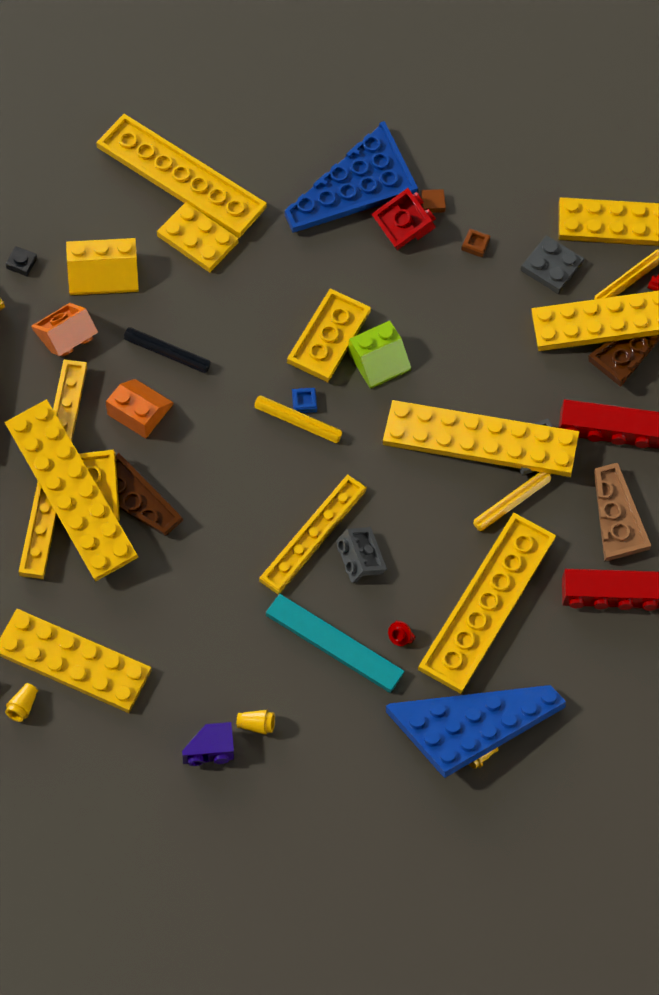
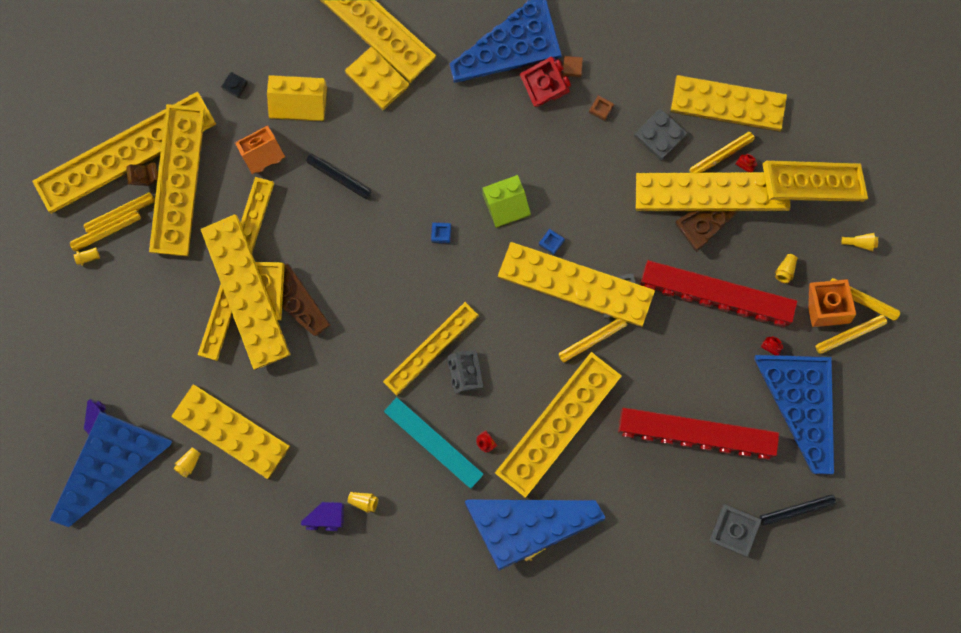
camera: 15 degrees right, 15 degrees up
(137, 406) = (309, 223): orange slope -> none
(298, 419) = (433, 248): yellow axle -> none
(328, 335) = (468, 177): yellow plate -> none
(442, 396) = (551, 242): none -> blue tile
(619, 519) = (675, 366): medium nougat wing -> none

